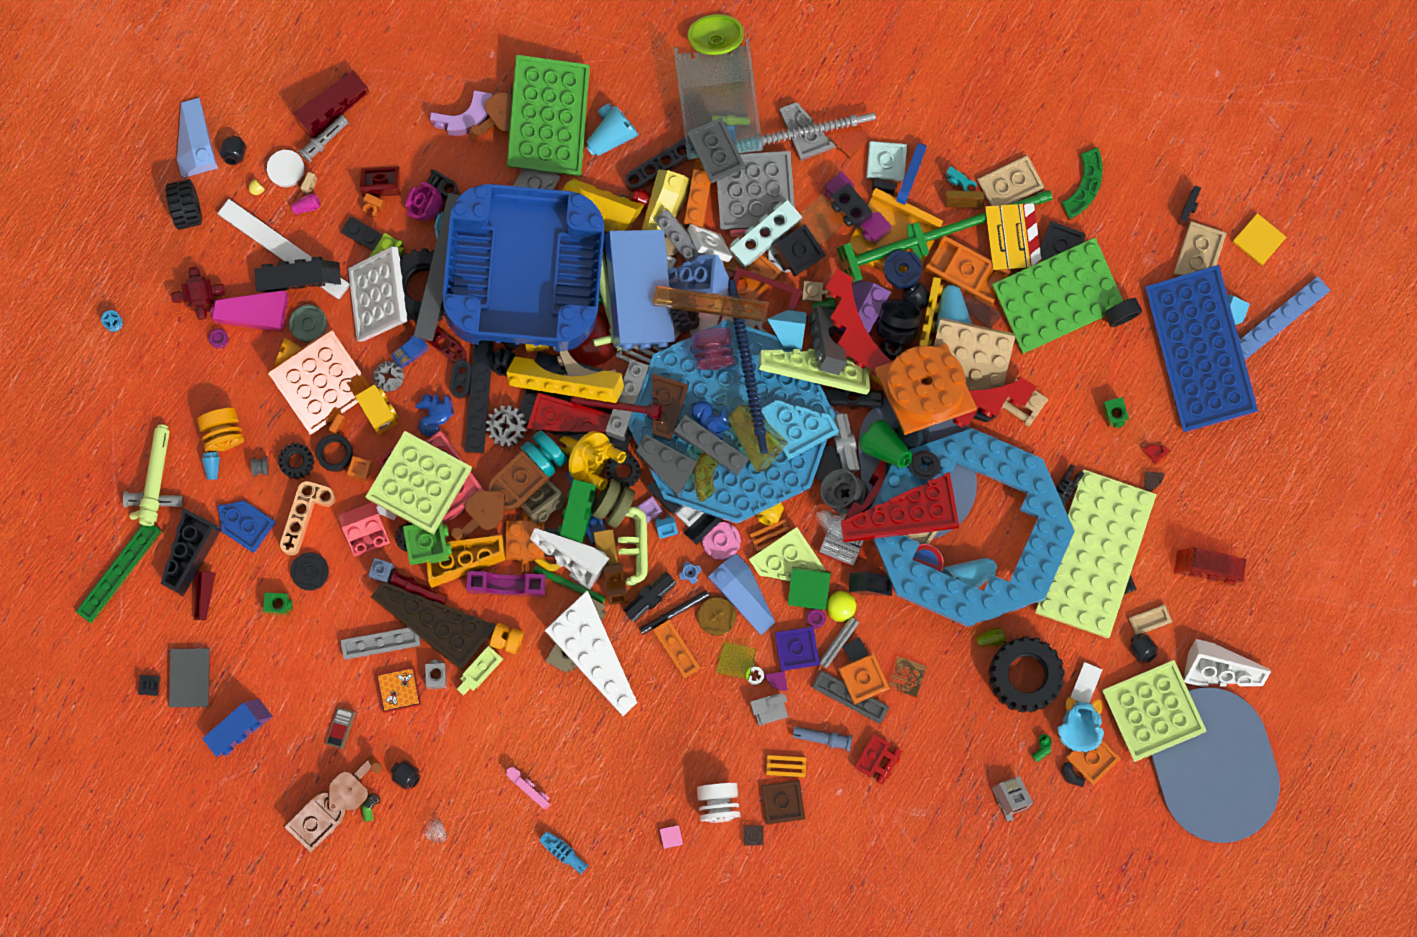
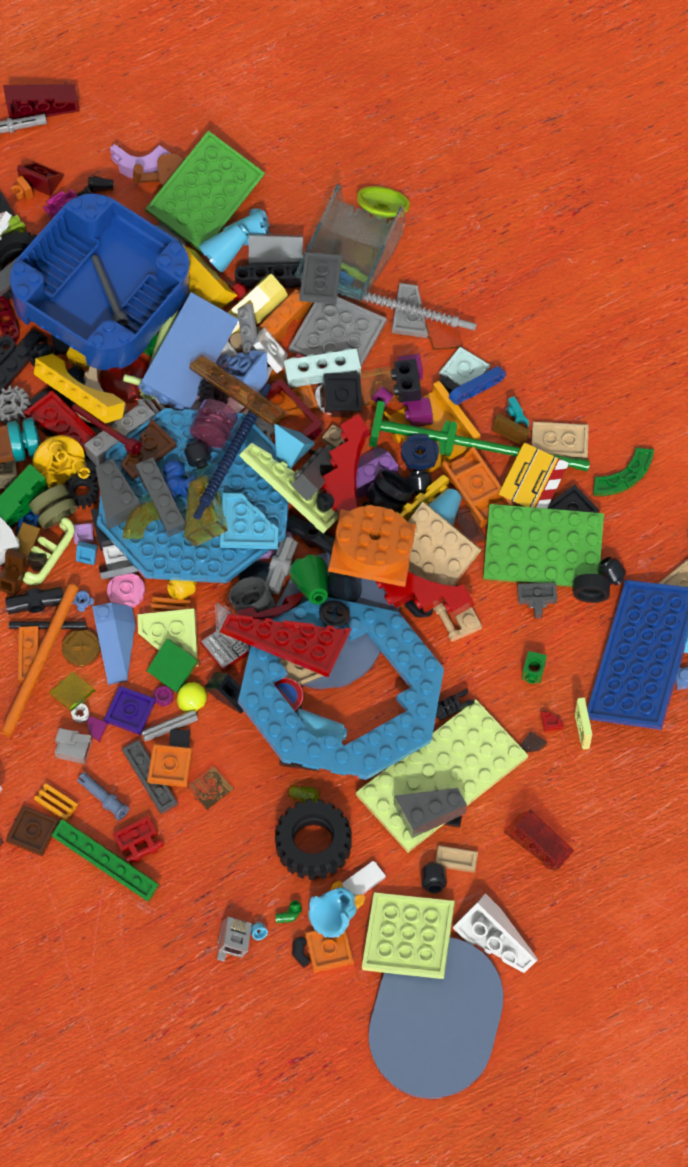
camera: 30 degrees right, 15 degrees down
(440, 159) = (99, 184): none -> black cone
(563, 293) = (119, 316): none -> dark grey piece
(603, 163) = (224, 246): none -> medium azure cone
(629, 560) = (37, 560): none -> clear smoke tile
(649, 140) = (275, 249): none -> tile
(692, 649) = (39, 660): none -> orange piece
(714, 384) = (197, 454): none -> black head
(836, 233) = (382, 395): none -> magenta leg
(854, 366) = (325, 501): none -> black plate
(862, 792) = (105, 860): none -> green plate
(1028, 778) = (259, 935): none -> medium azure hinge
(1079, 344) = (537, 596): none -> dark grey hinge
(1109, 595) = (429, 809): none -> dark grey wedge
(1129, 285) = (612, 570): none -> black head
(1188, 441) = (583, 723): none -> yellowish green tile

